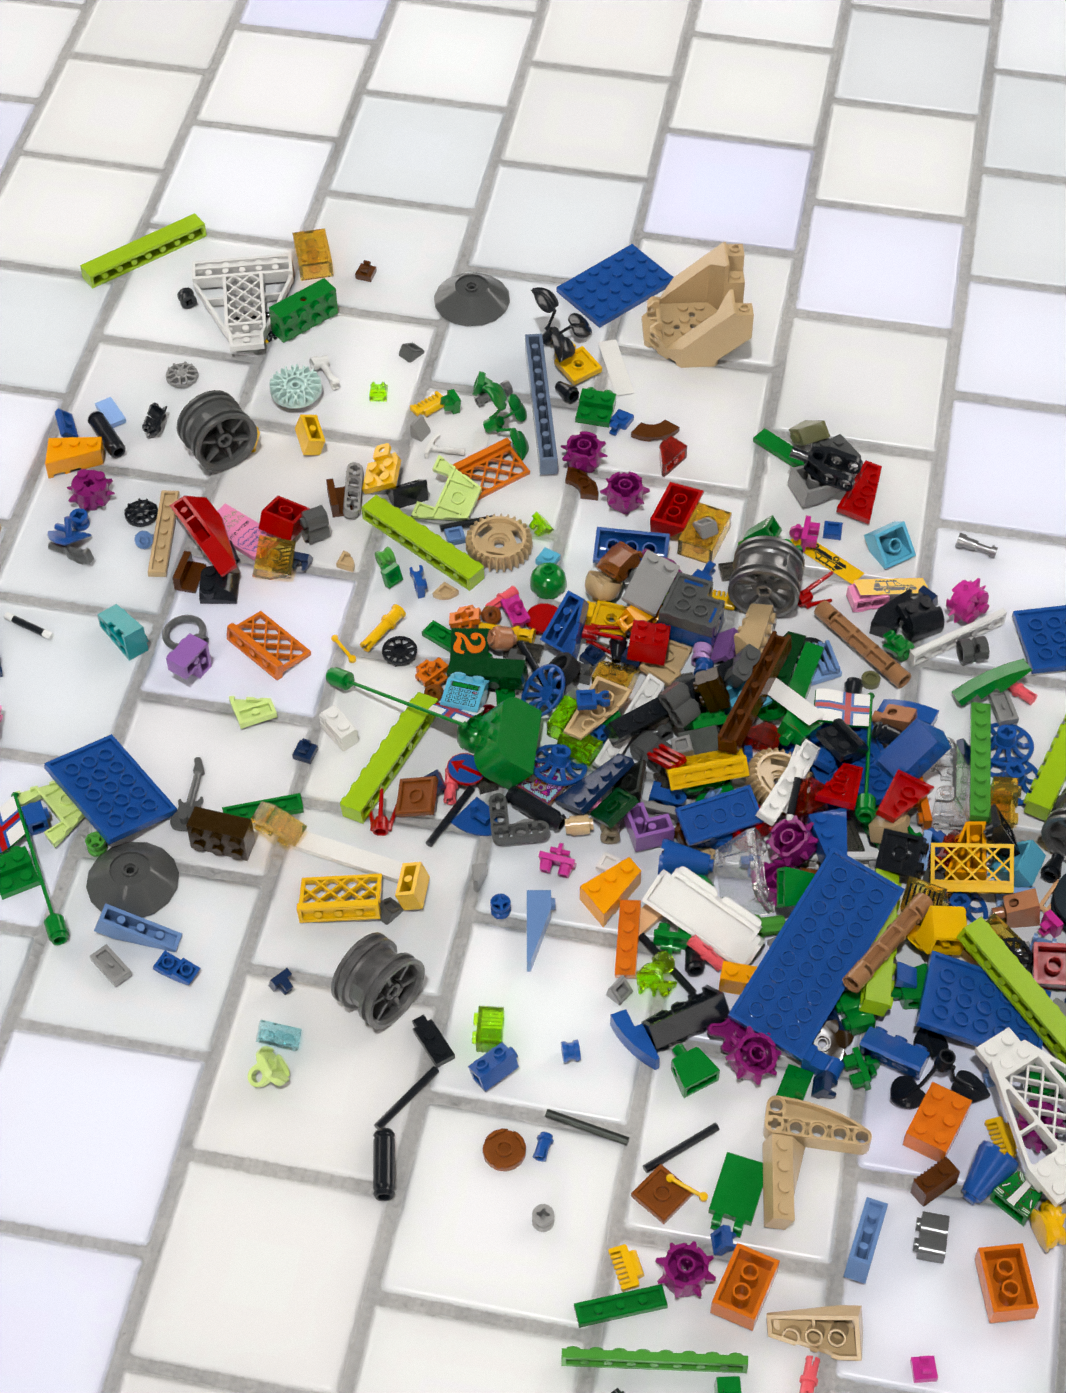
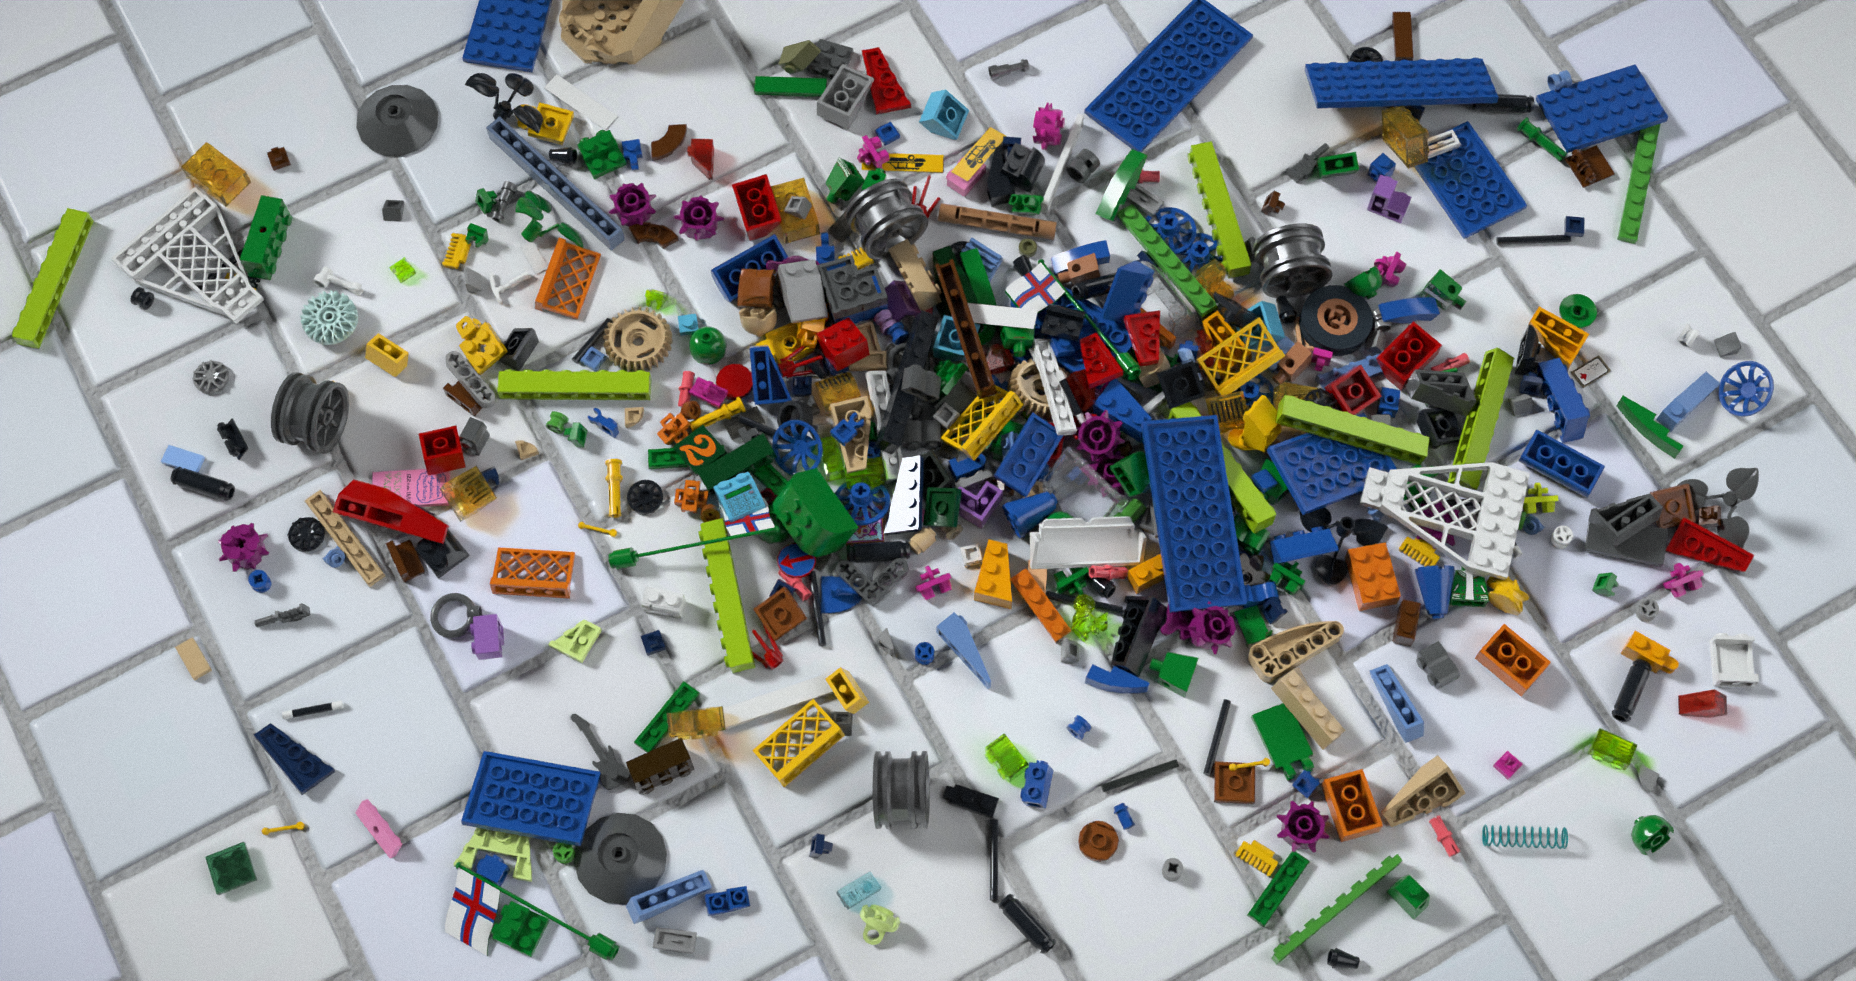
camera: 40 degrees left, 15 degrees up
(64, 535) = (264, 605): blue shield -> none
(65, 423) = (157, 501): blue plate -> none
(73, 453) = (192, 524): light orange wedge -> none
(124, 631) = (403, 653): teal wedge -> none
(456, 498) = (566, 325): yellowish green wing -> none
(501, 638) = (722, 426): nougat head -> none
(670, 756) = (945, 431): red tile -> none
(712, 690) = (934, 352): dark brown brick -> none
(742, 666) = (938, 311): dark grey brick -> none
(819, 456) = (835, 87): black piece -> none
(887, 942) = (1237, 466): medium nougat piece -> none

